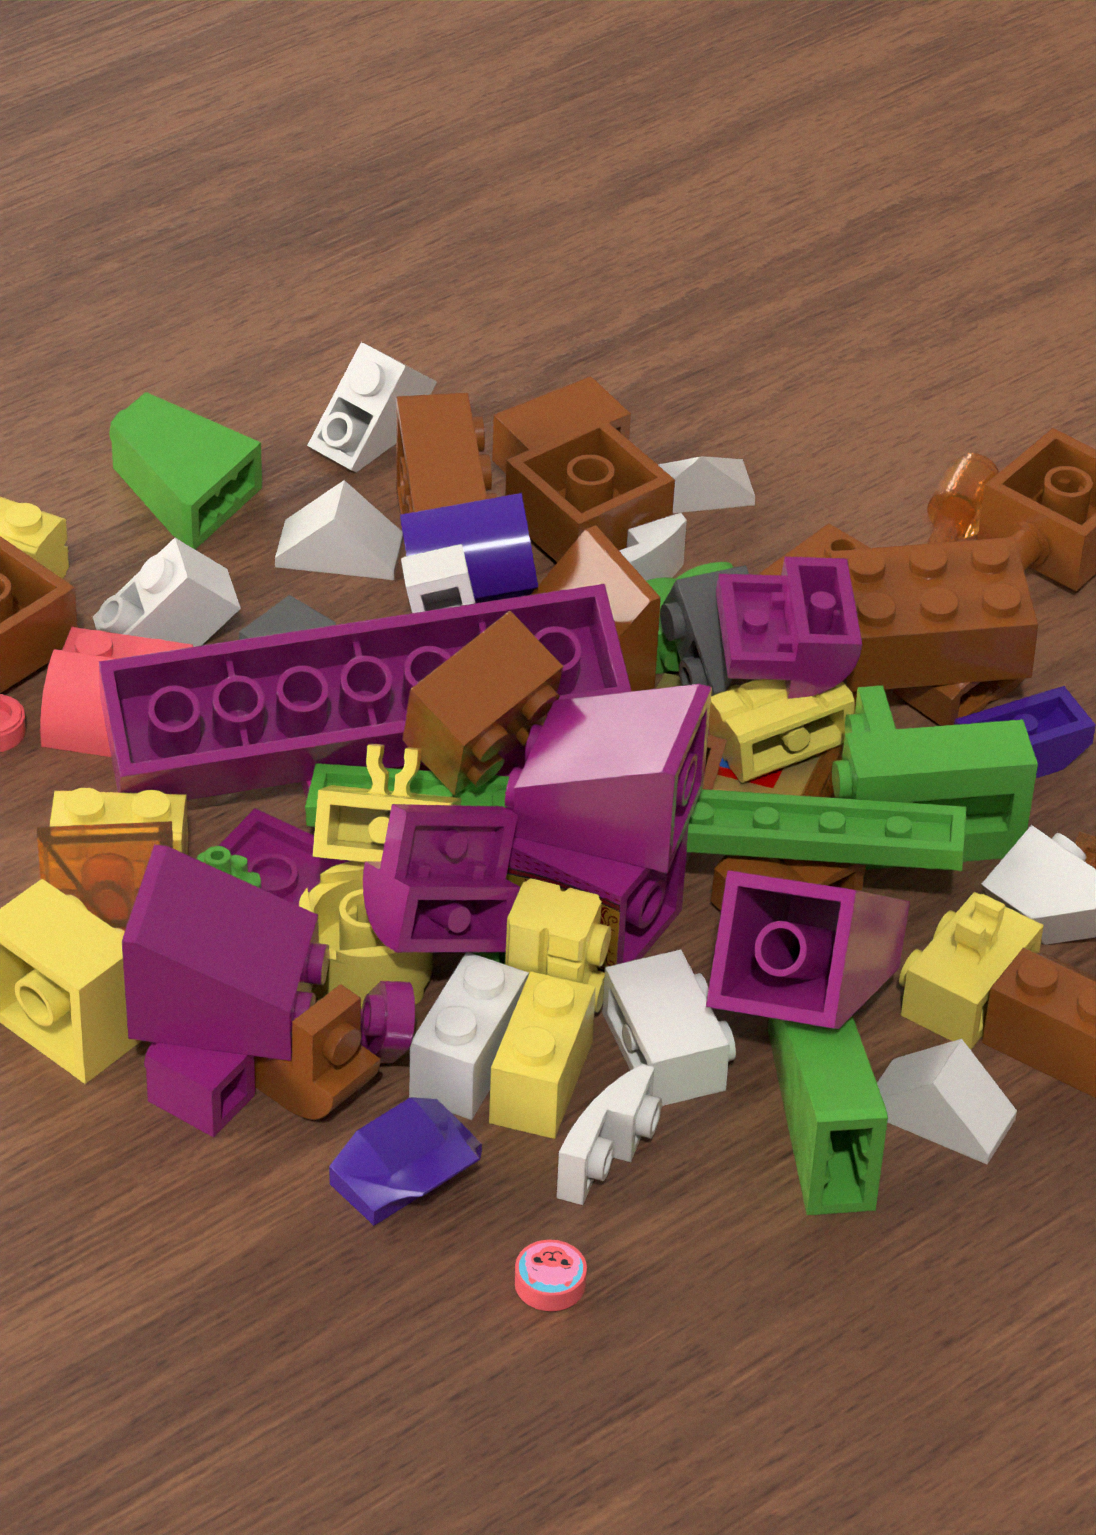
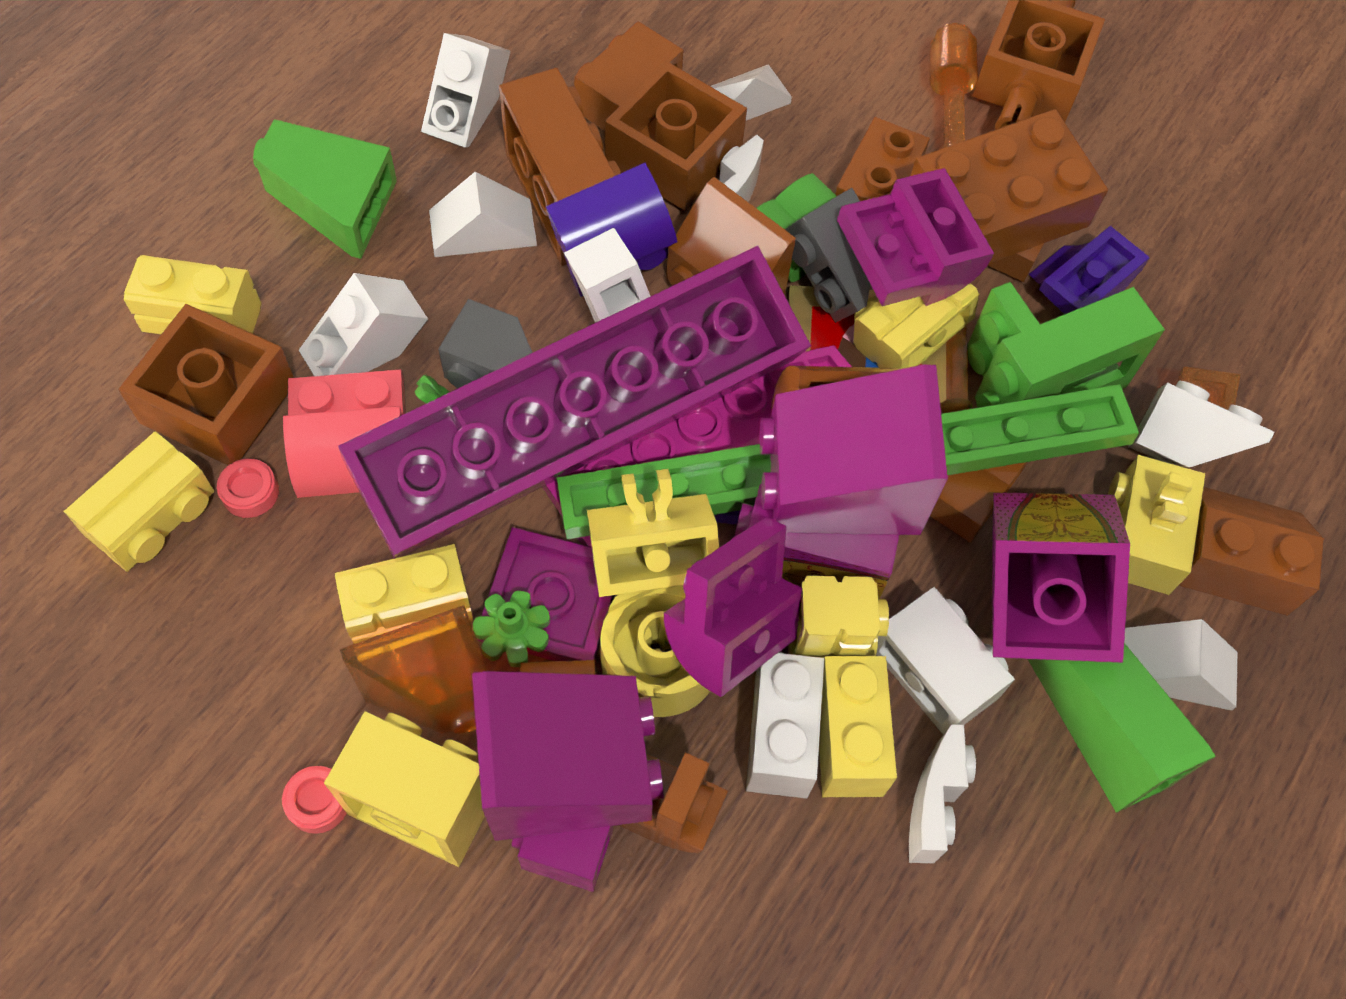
camera: 20 degrees left, 20 degrees up
(388, 1020) = (719, 741): magenta plate -> none
(402, 1157) = (784, 879): dark purple slope -> none
(482, 703) = (711, 406): dark orange brick -> none
(550, 1275) = (944, 963): tile -> none

